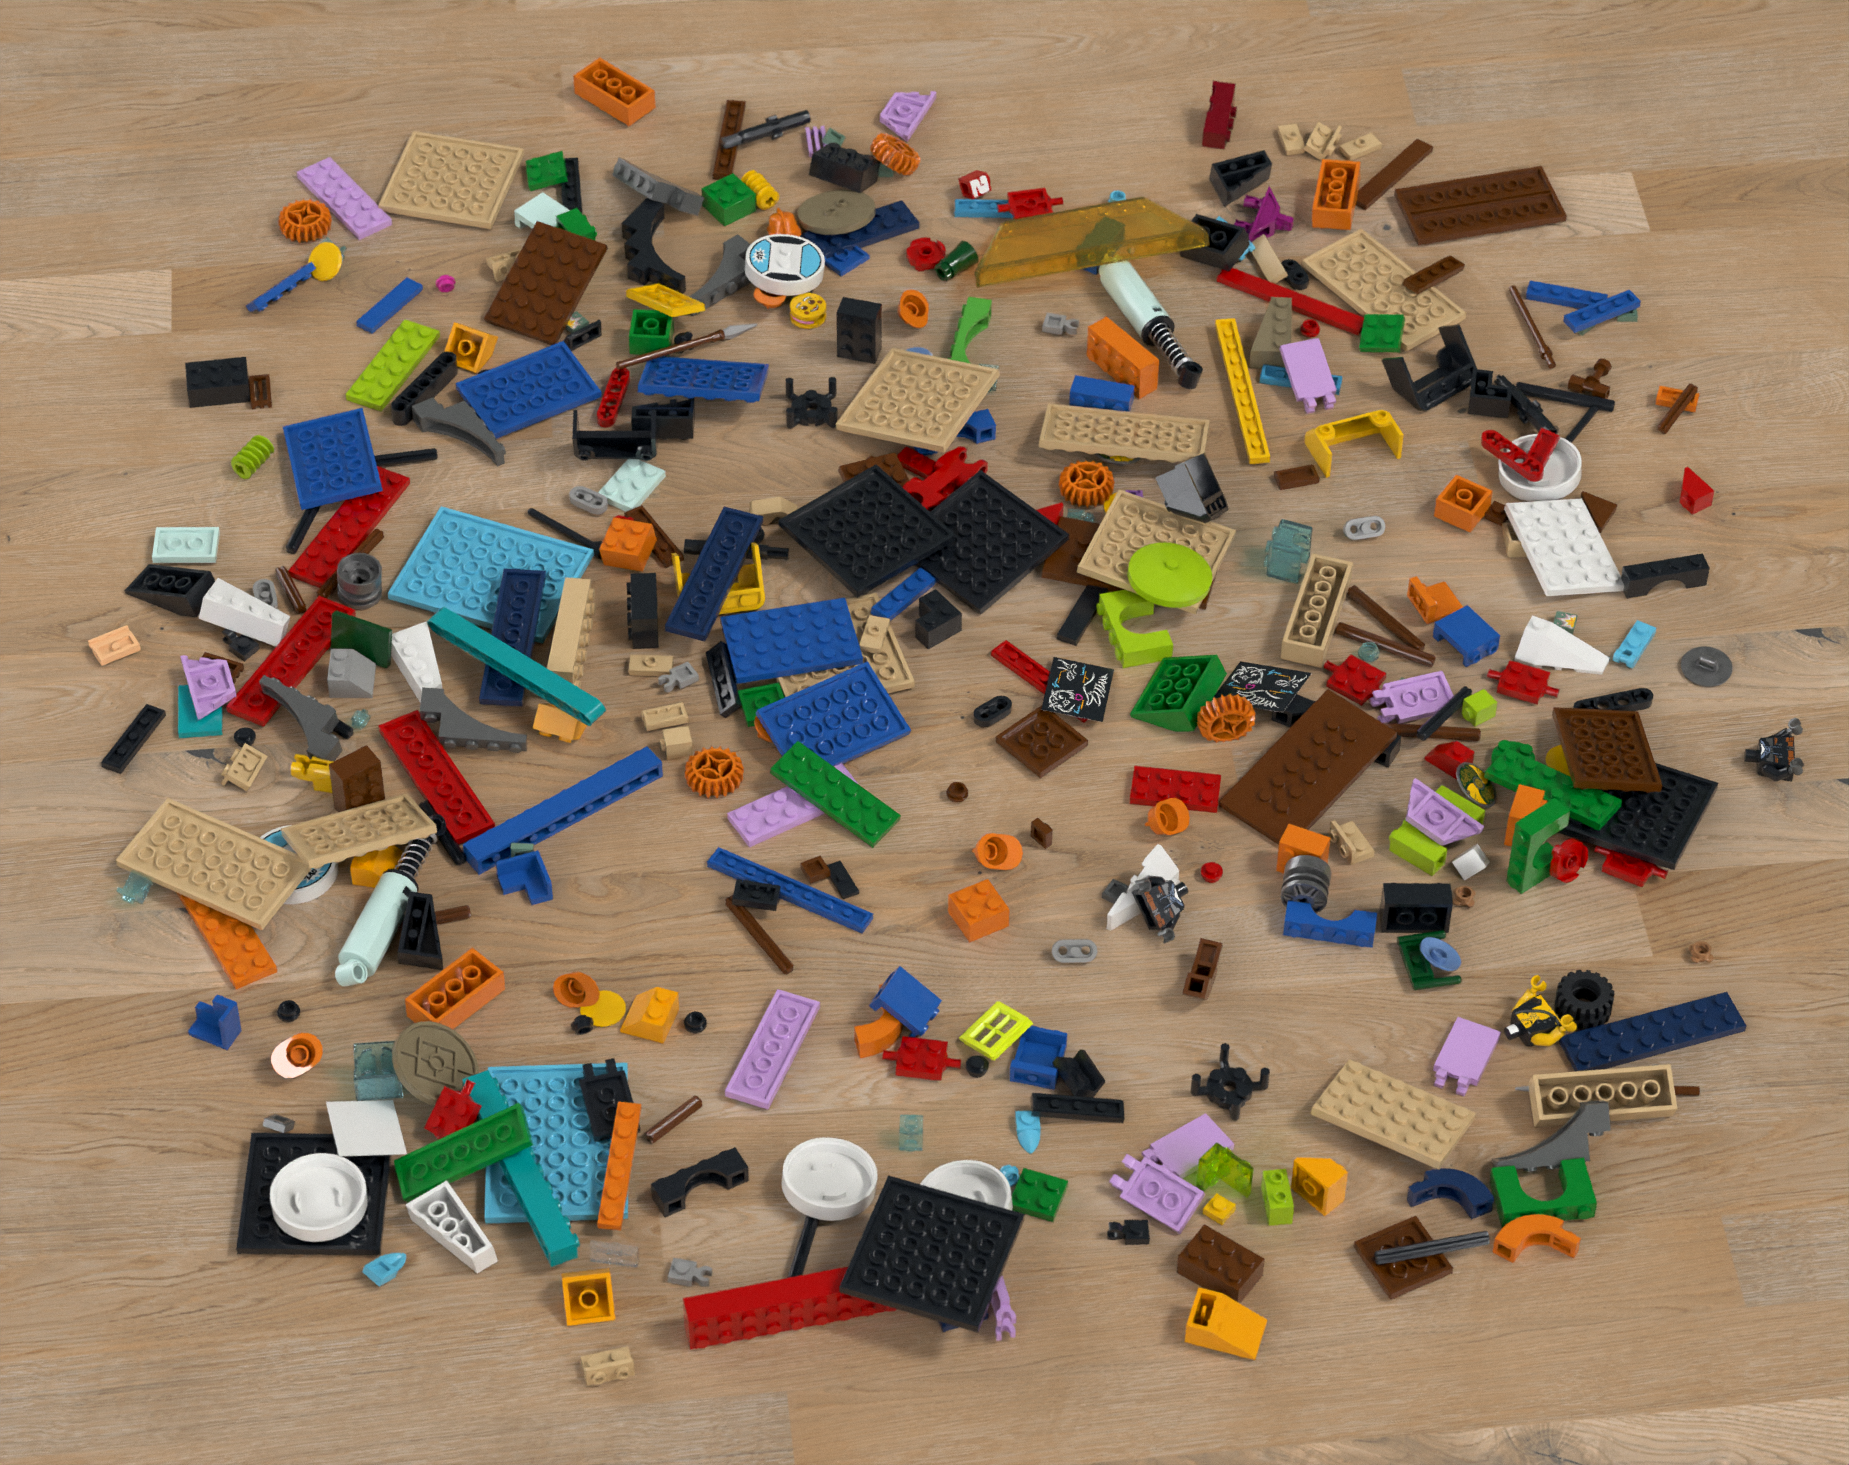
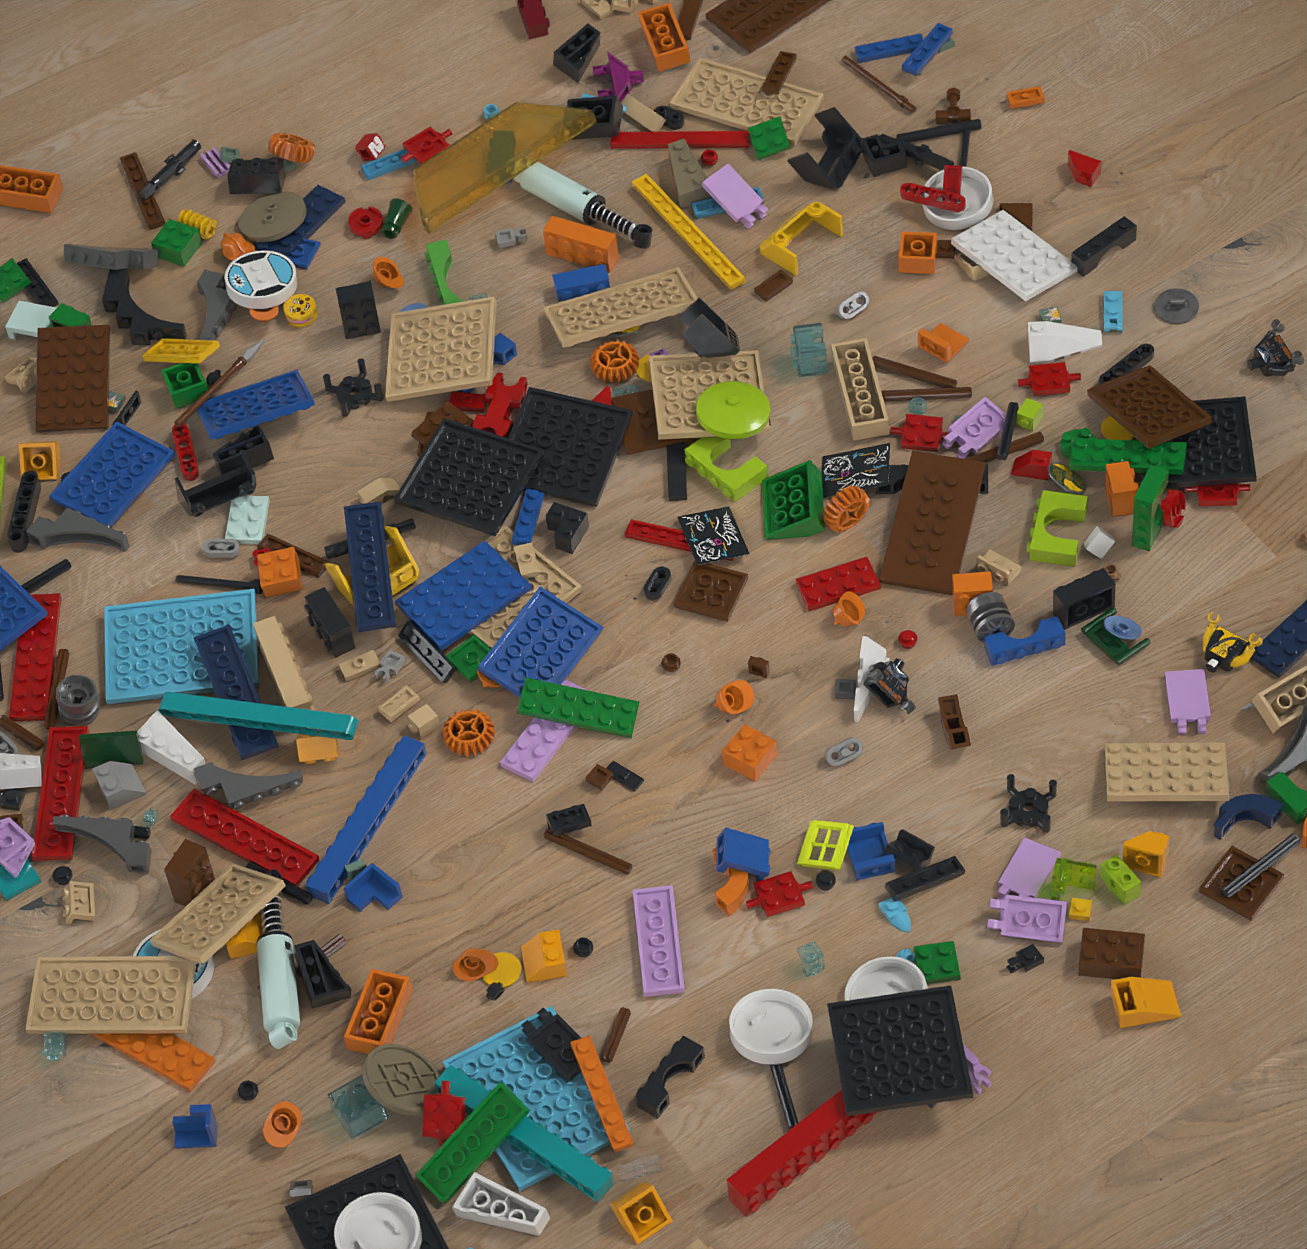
camera: 20 degrees left, 5 degrees up
(312, 770) = (149, 877): yellow plate -> none
(366, 1128) = (377, 1158): white sticker -> none
(685, 1272) = (704, 1156): light grey plate -> none
(792, 890) = (594, 802): blue tile -> none
(906, 112) = (274, 108): lavender wing -> none
(1438, 816) = (1057, 517): lavender wing -> none
(1467, 634) = (986, 358): blue panel -> none
(1589, 987) = (1251, 603): black tyre -> none
(1677, 408) = (1031, 106): reddish brown axle -> none

